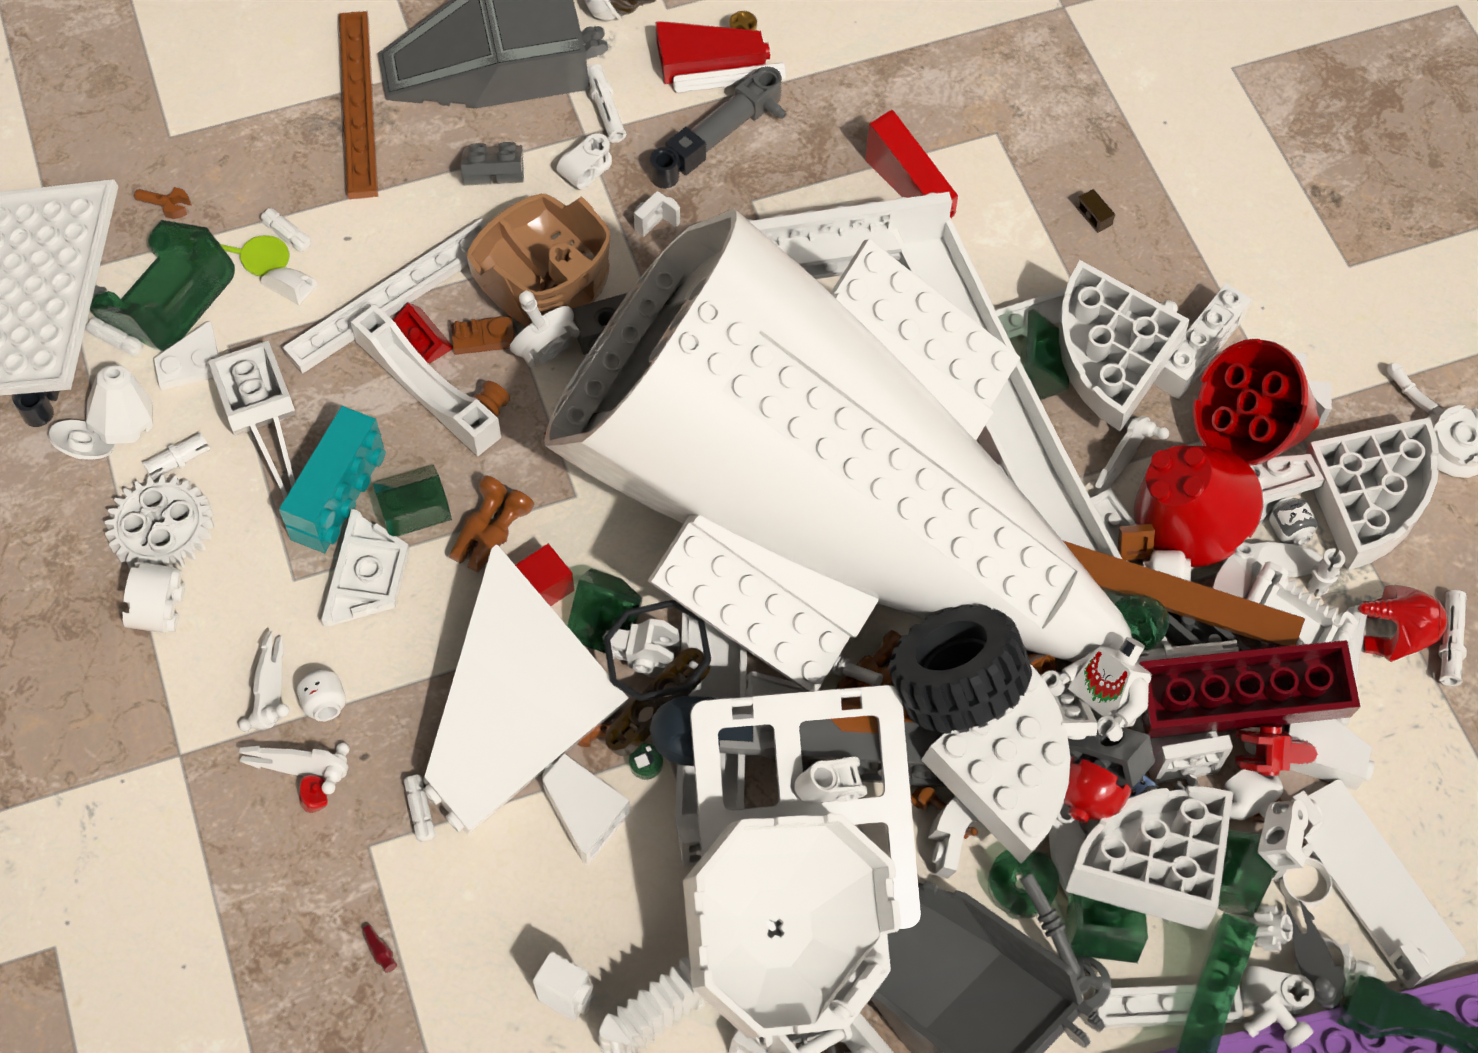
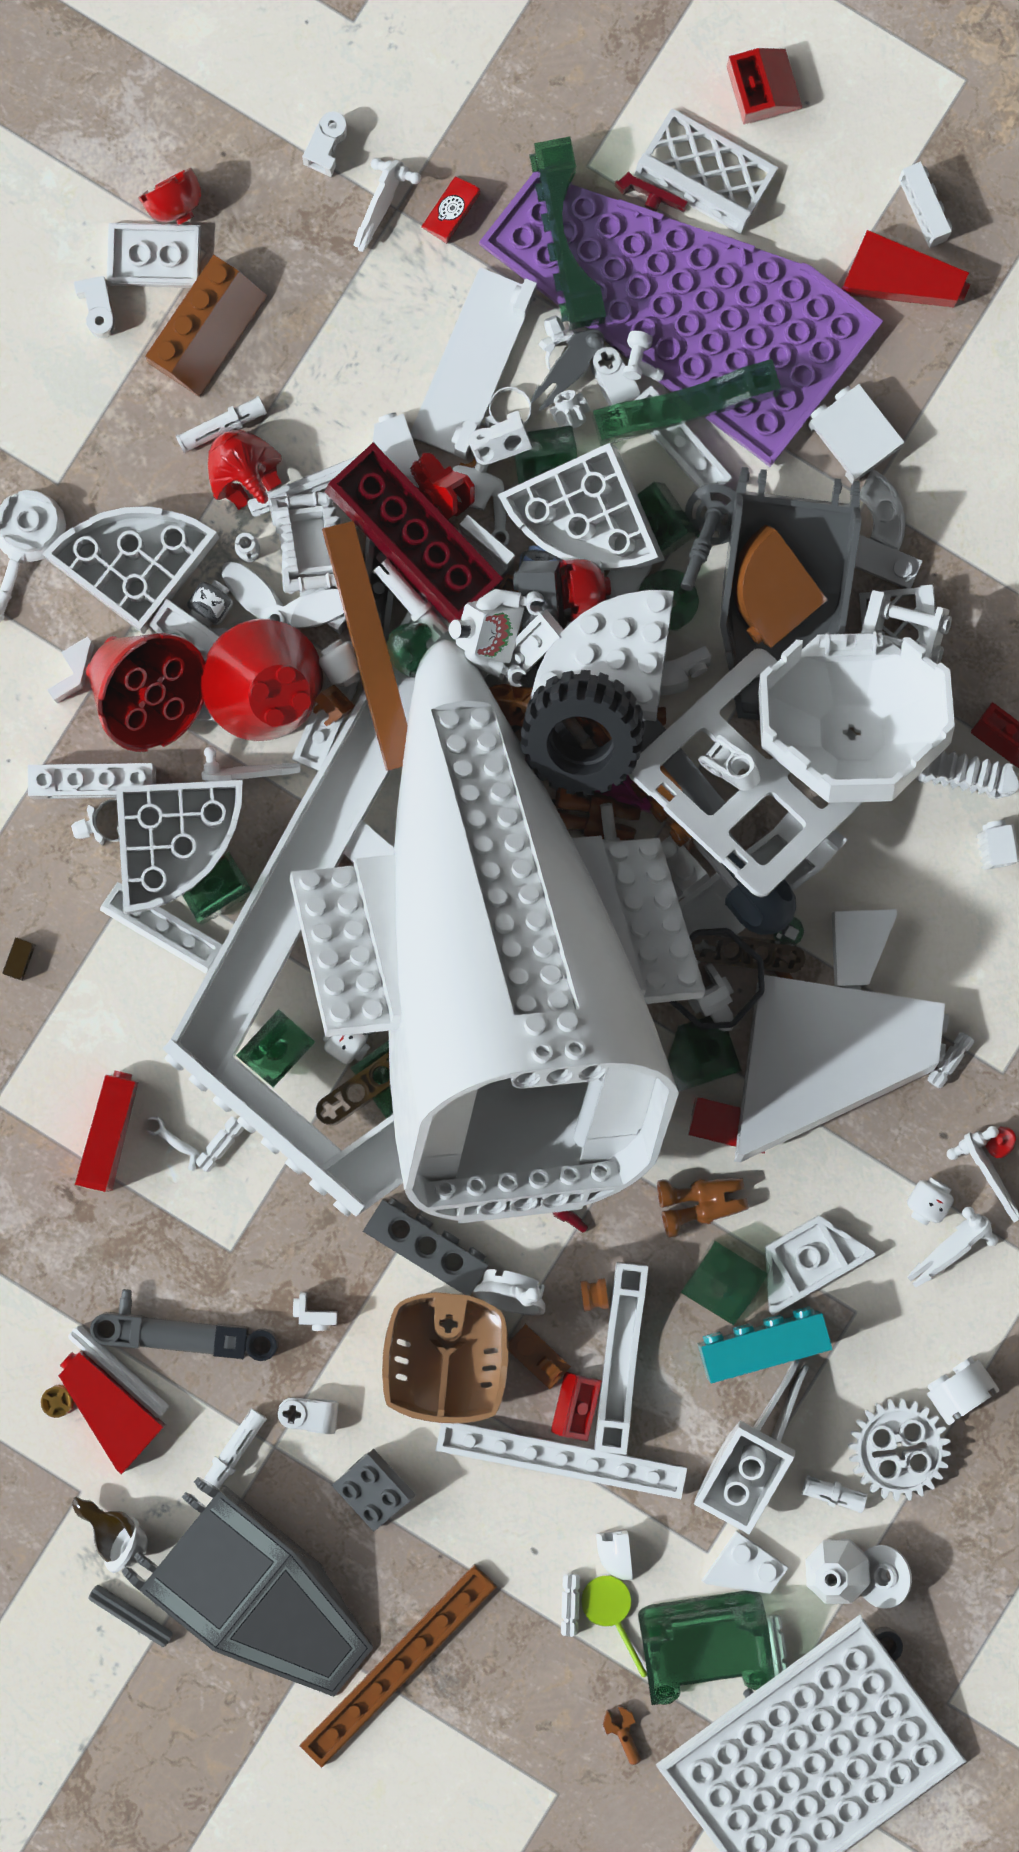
camera: 130 degrees left, 25 degrees up
(965, 968) = (772, 587): none -> dark orange brick

